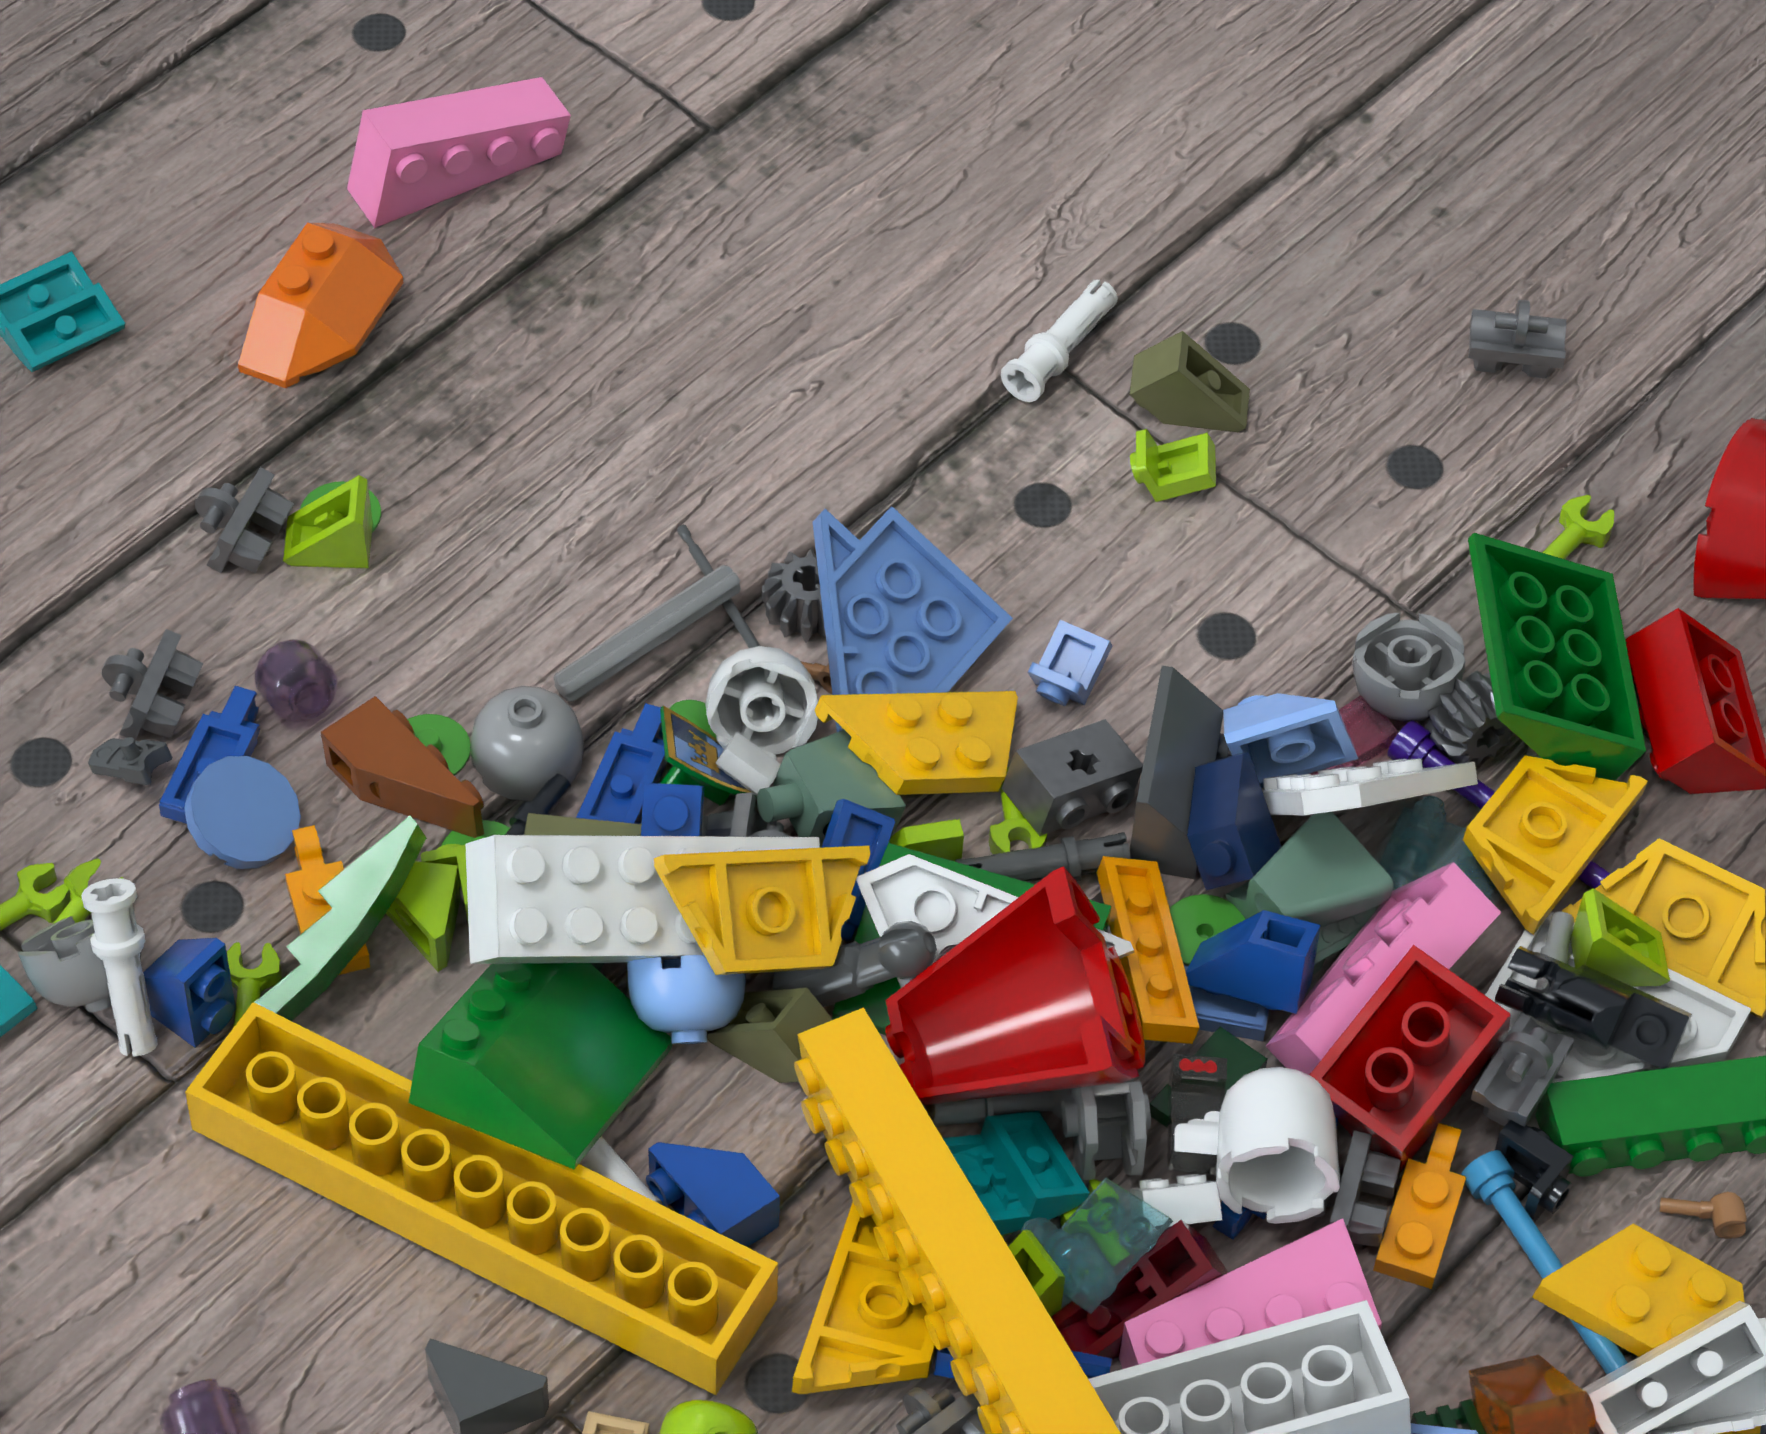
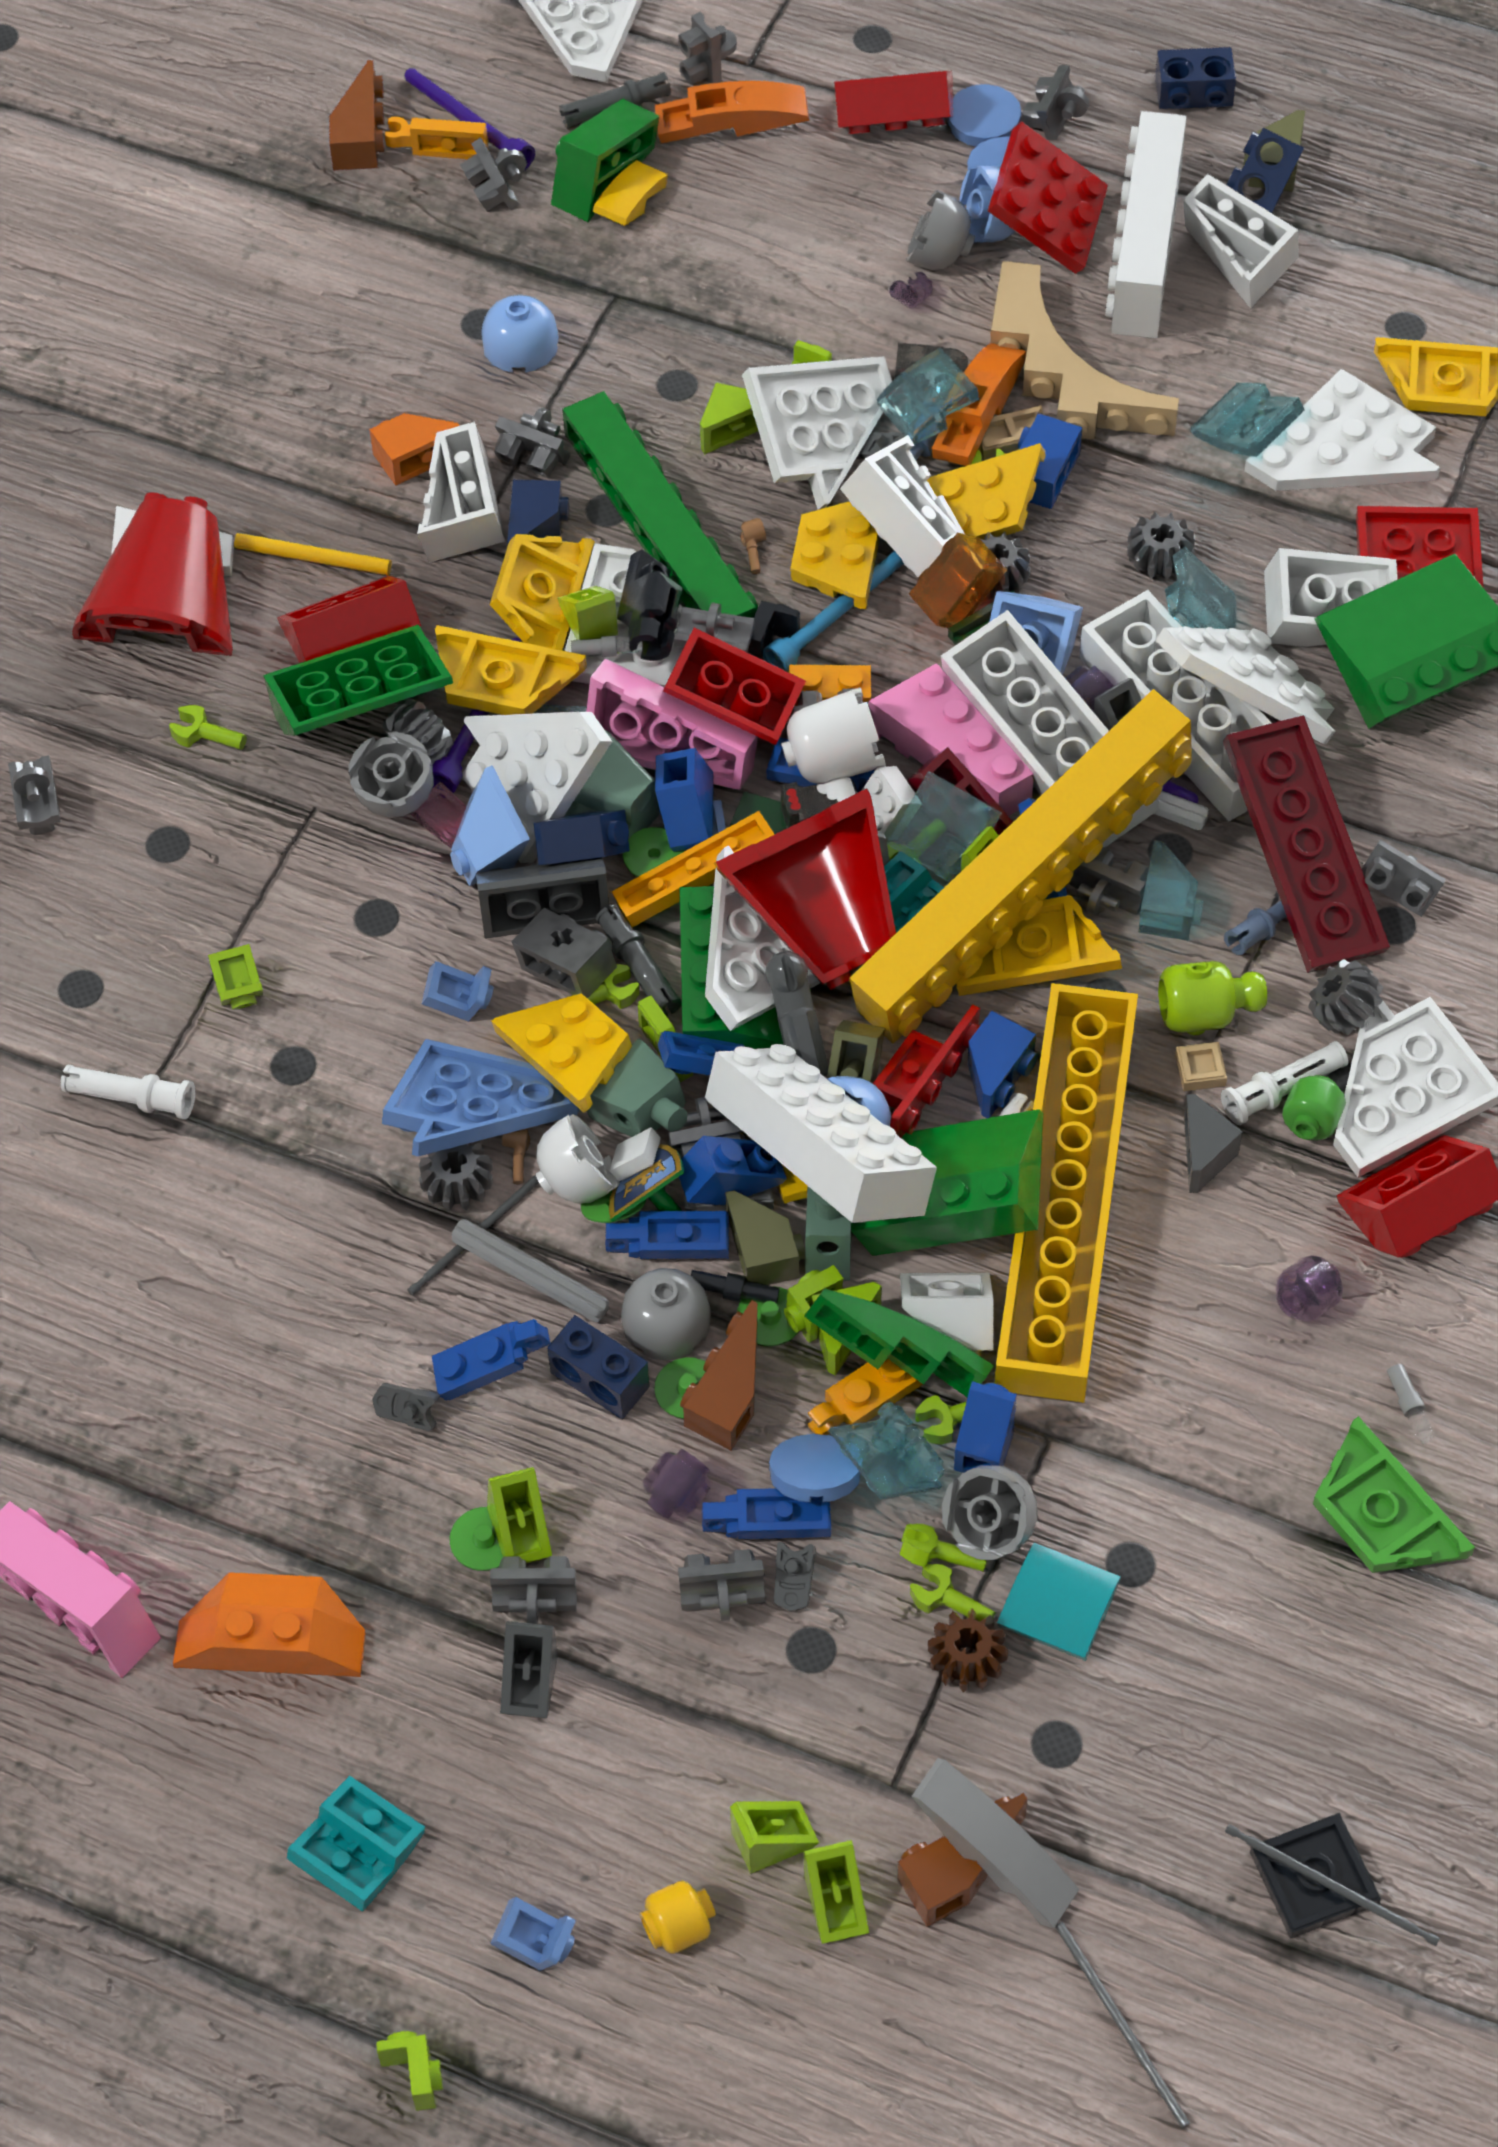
camera: 105 degrees left, 5 degrees up
(119, 945) = (1002, 1453): white pin -> none
(154, 492) = (528, 1669): none -> dark grey slope
(215, 880) = (891, 1454): none -> clear light blue hinge
(383, 1004) = (952, 1304): none -> white slope
(481, 650) = (598, 1367): none -> dark blue brick
(525, 482) = (405, 1405): none -> dark grey piece
(543, 546) = (487, 1357): none -> blue hinge
(732, 1093) = (918, 1069): none -> red bracket
(765, 905) = (796, 1049): yellow wing -> none
(1188, 386) = (155, 992): olive slope -> none

